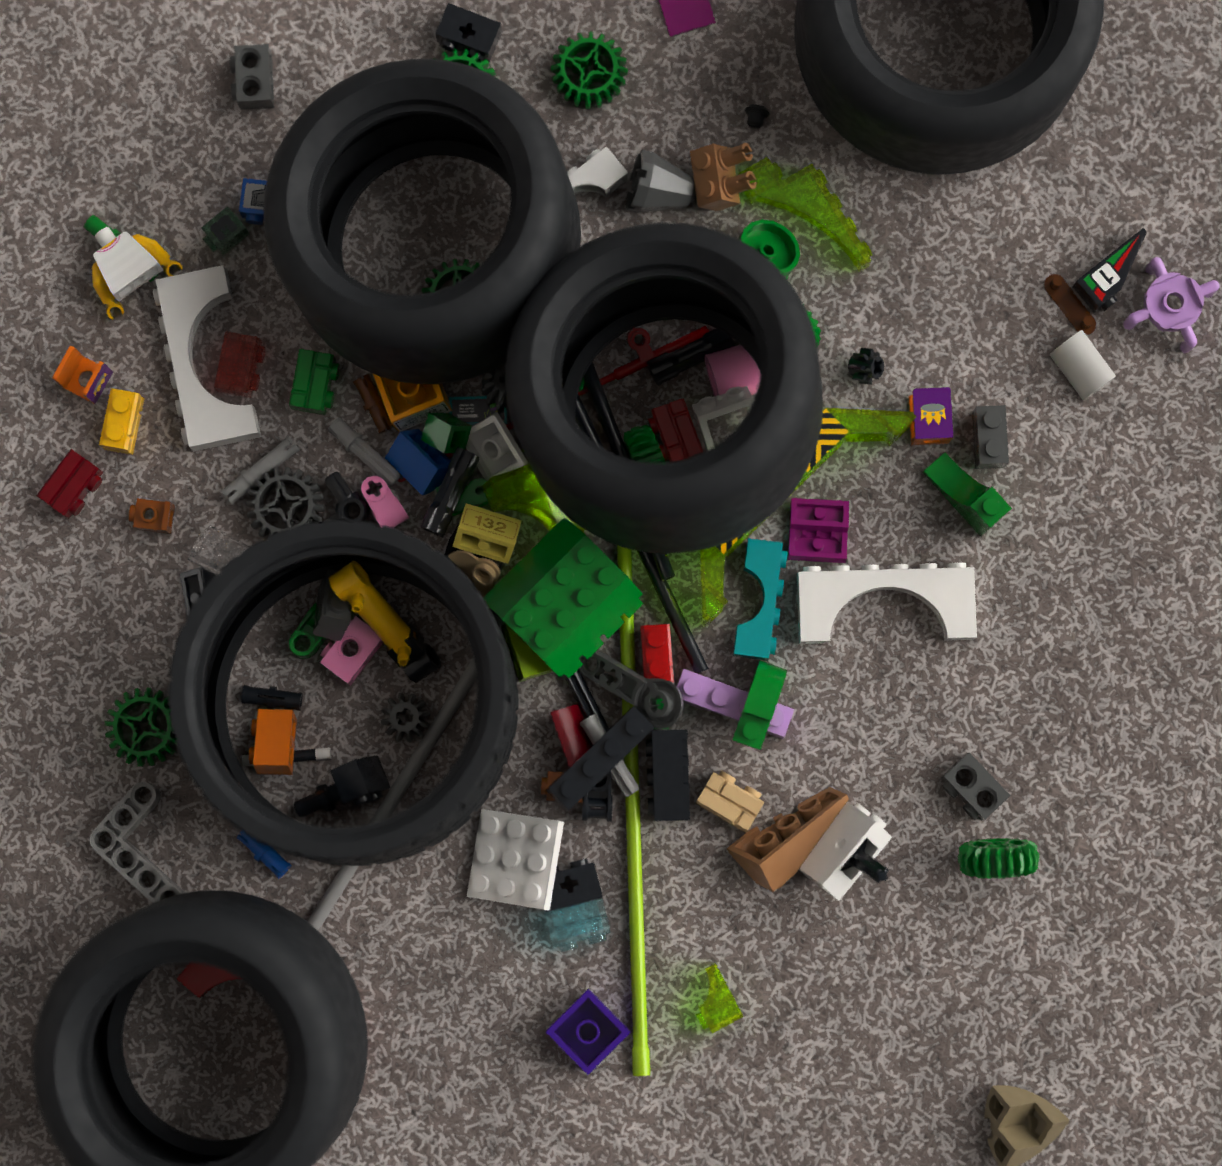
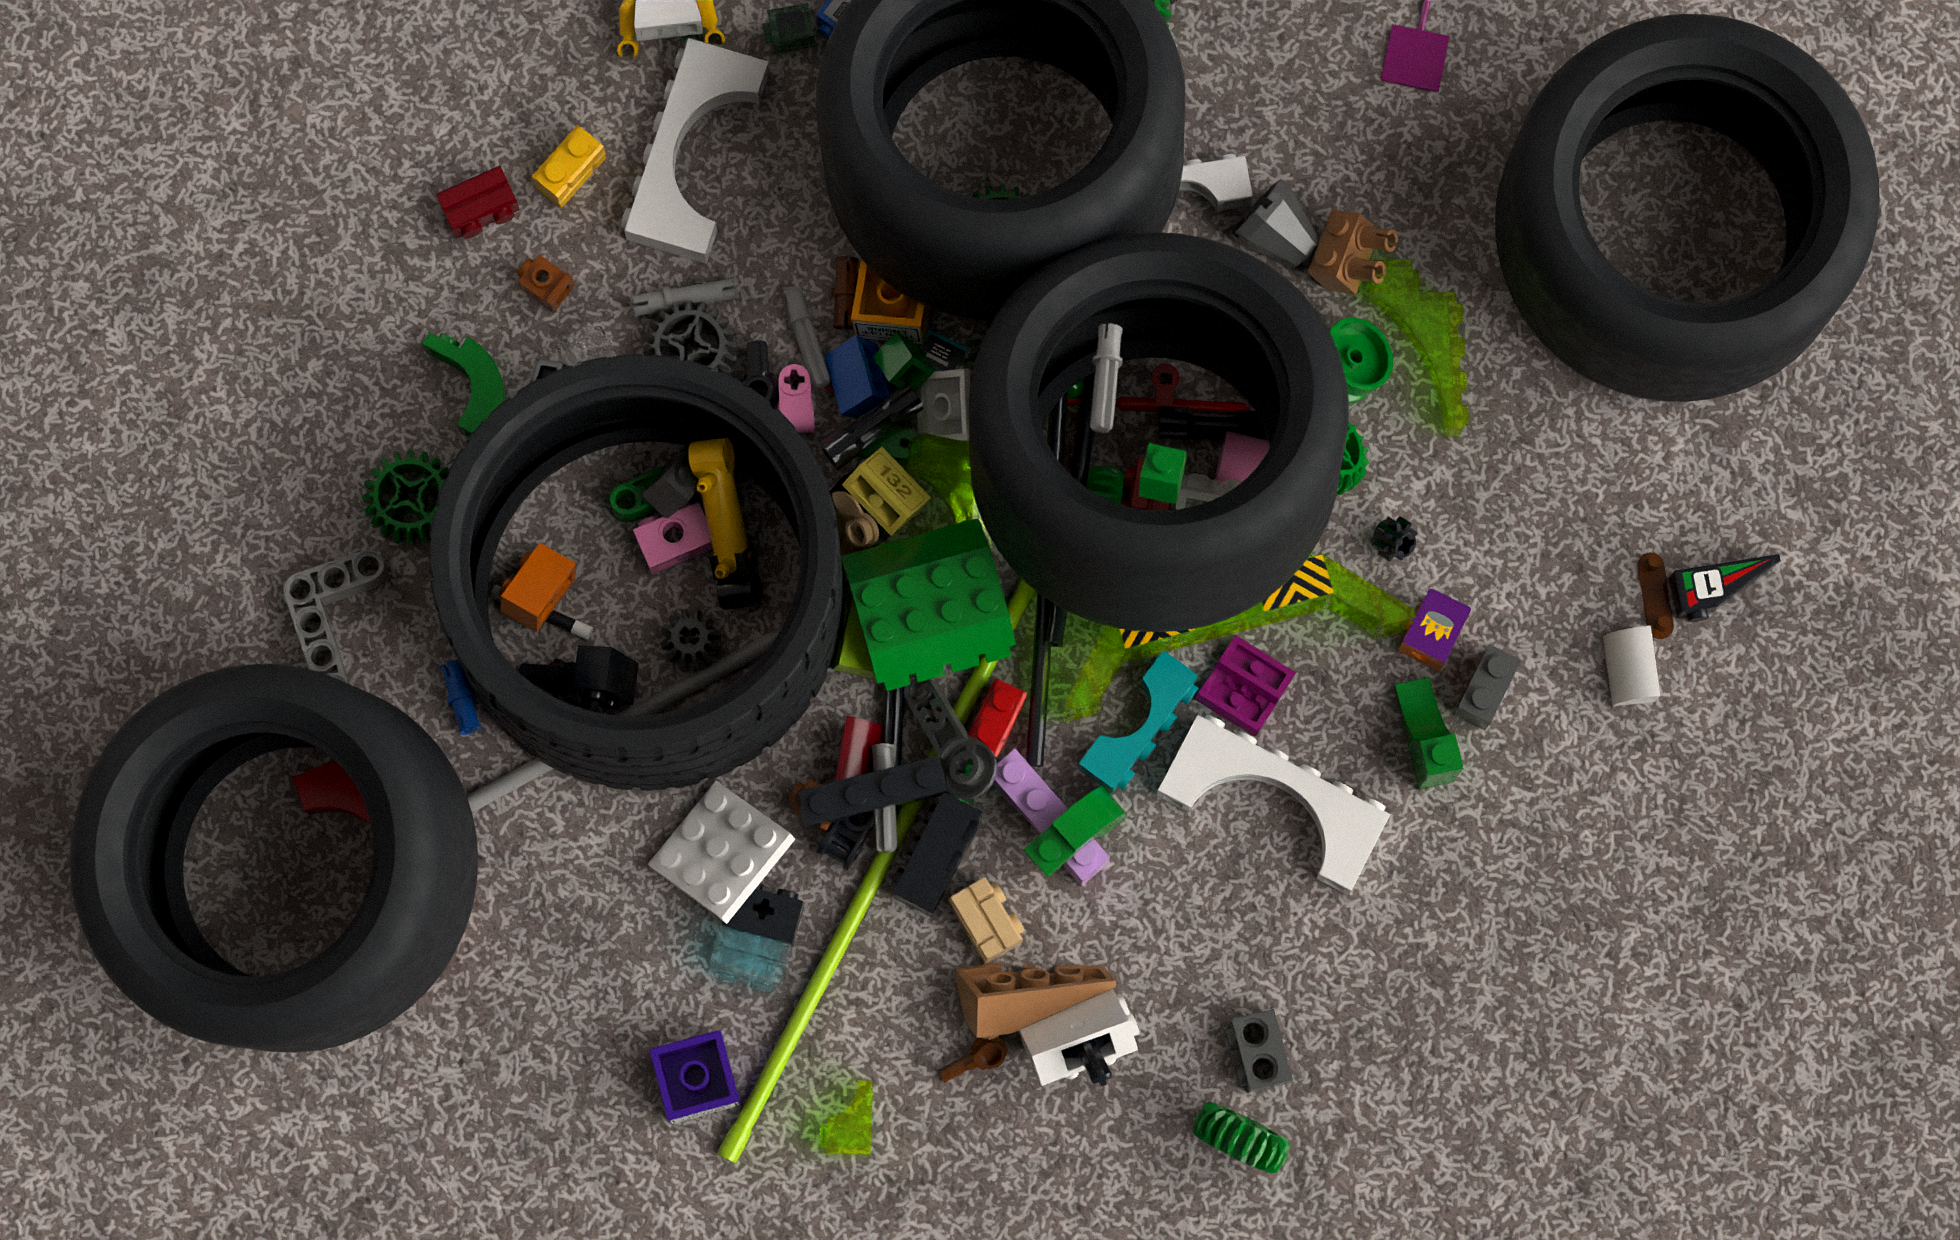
camera: 25 degrees right, 5 degrees down
(73, 366) = (550, 82): orange piece -> none
(157, 619) = (481, 370): none -> green arch
(239, 364) = (725, 175): clear red brick -> none
(252, 696) = (543, 527): black pin -> none
(313, 382) = (794, 235): green brick -> none
(579, 65) = (1257, 45): green gear -> none
(610, 364) = (1107, 364): none -> light grey axle
(698, 424) = (1162, 473): none -> green brick
(756, 115) = (1426, 211): black piece -> none
(781, 900) = (984, 1055): none -> reddish brown plate
(1161, 314) = (1753, 666): lavender plate -> none

